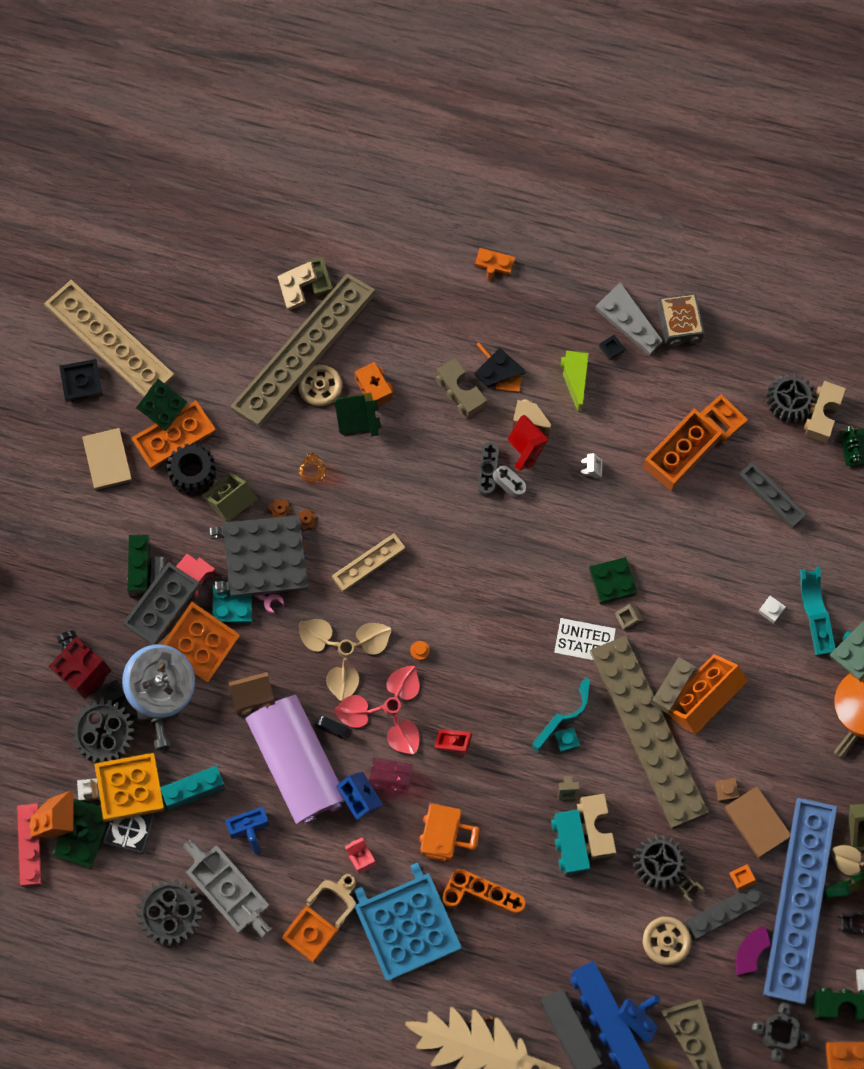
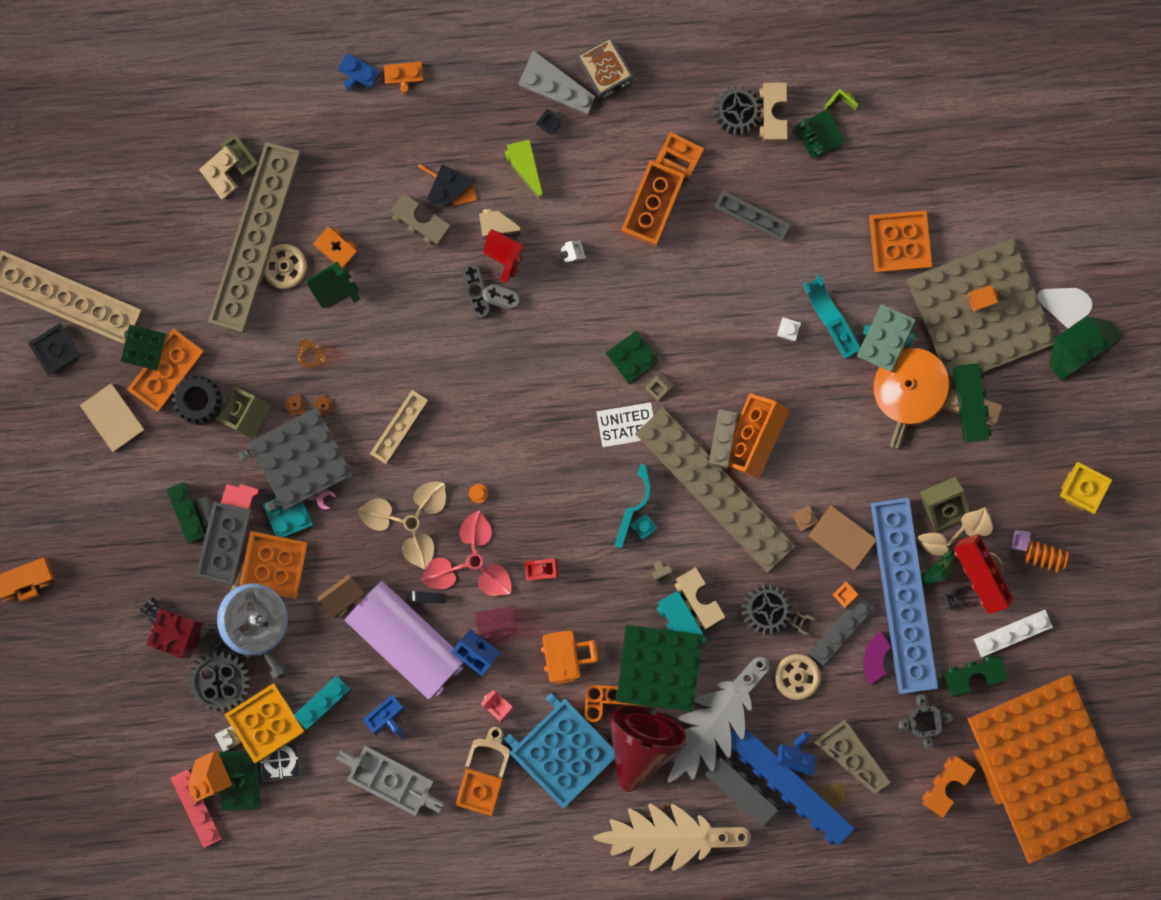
camera: 20 degrees left, 15 degrees up
(156, 925) = (341, 838): dark grey gear -> none
(454, 246) = (358, 72): none -> blue plate
(488, 946) = (642, 744): none -> dark red cone
(533, 876) = (659, 668): none -> dark green plate
(568, 951) = (713, 722): none -> light grey plant

